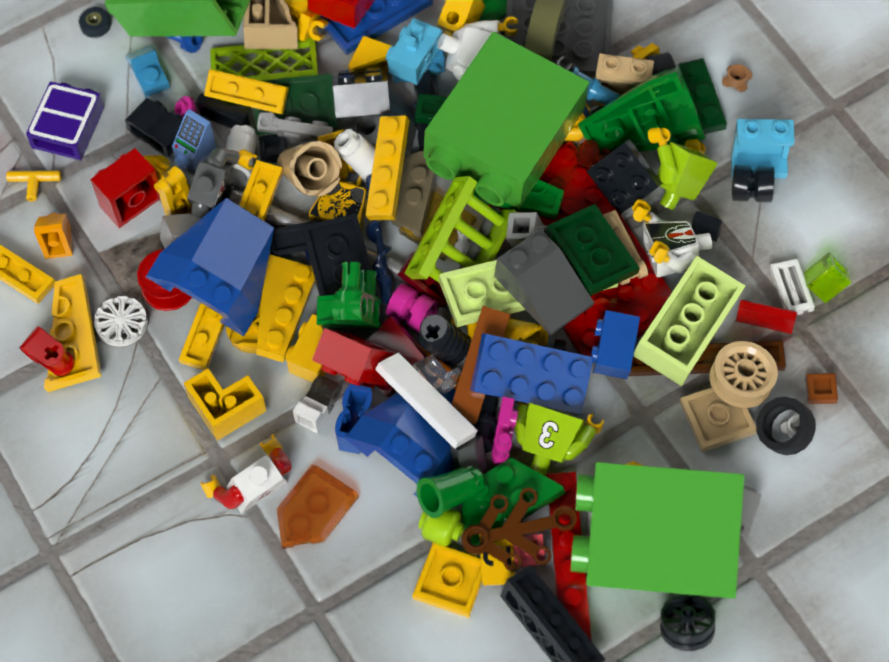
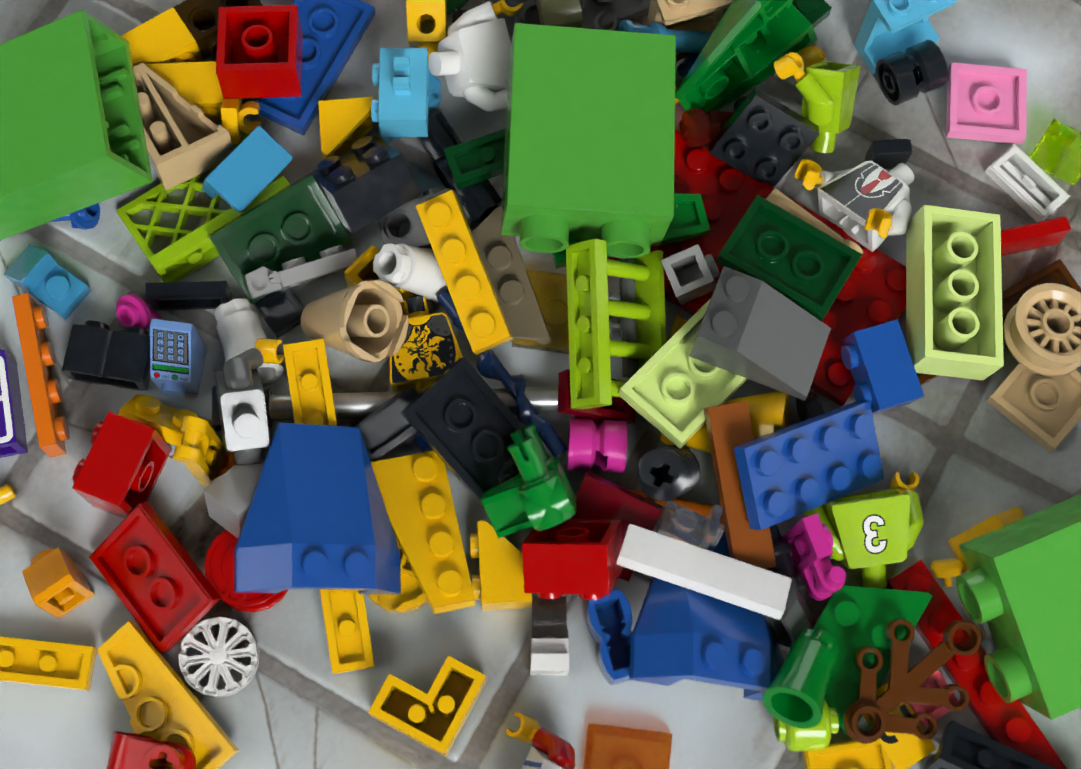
camera: 35 degrees left, 10 degrees up
(109, 126) = (43, 389): none -> orange plate
(109, 257) = (154, 577): none -> red tile
(246, 91) = (210, 253): yellow tile -> none
(296, 55) = (247, 170): none -> dark azure panel
(793, 225) = (986, 103): none -> bright pink plate

